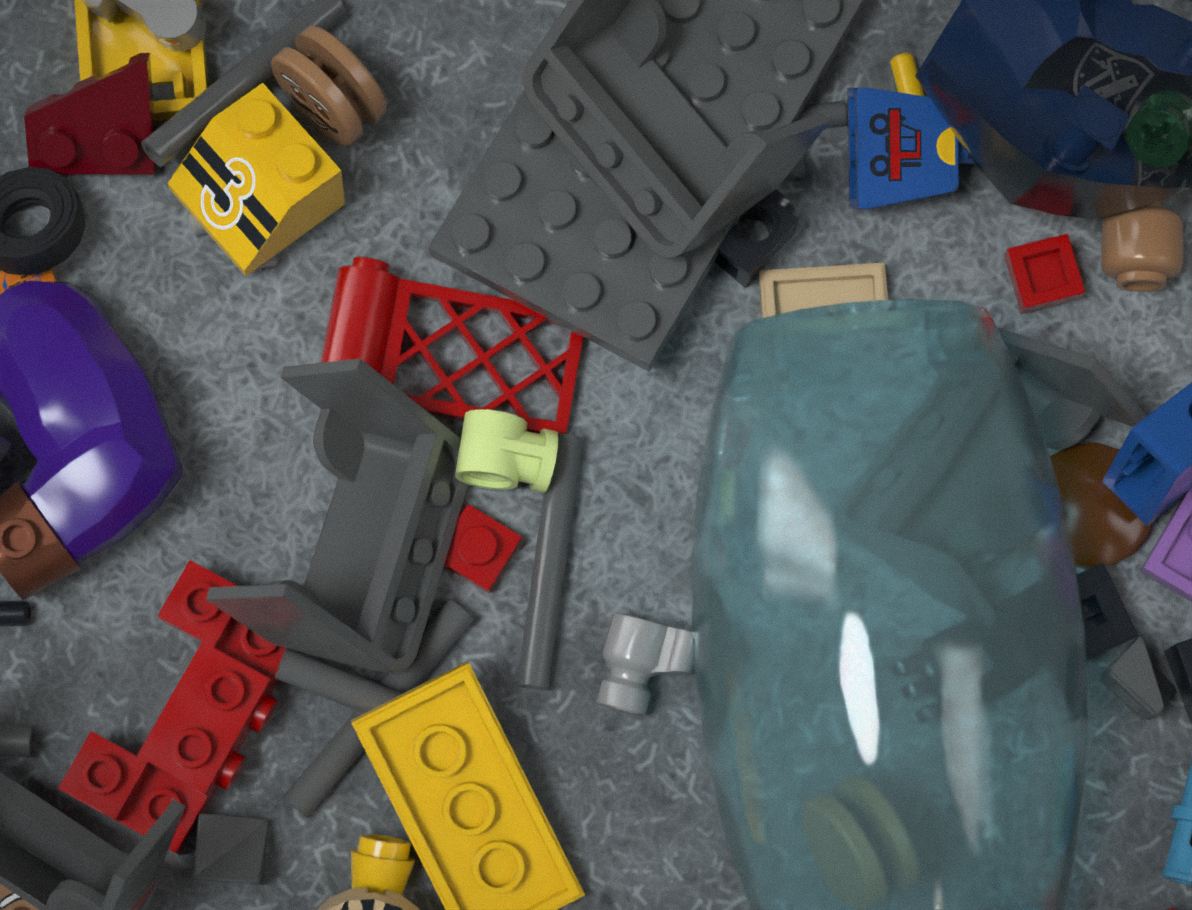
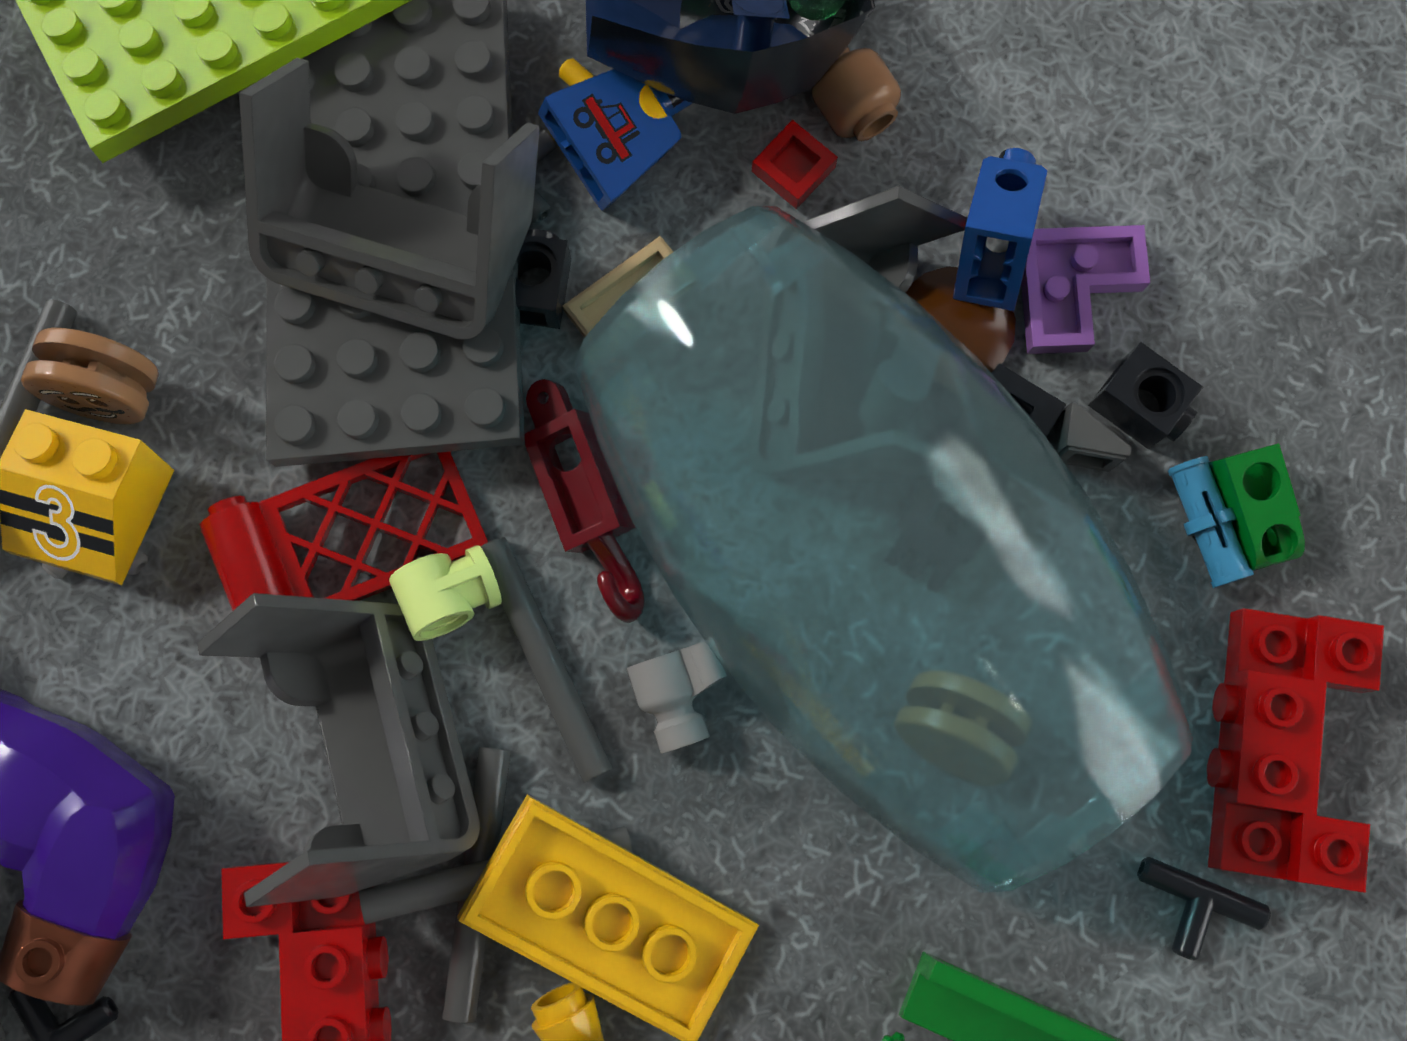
camera: 35 degrees left, 0 degrees up
(480, 548) = (477, 686): red plate -> none
(670, 449) = (584, 499): none -> dark red piece

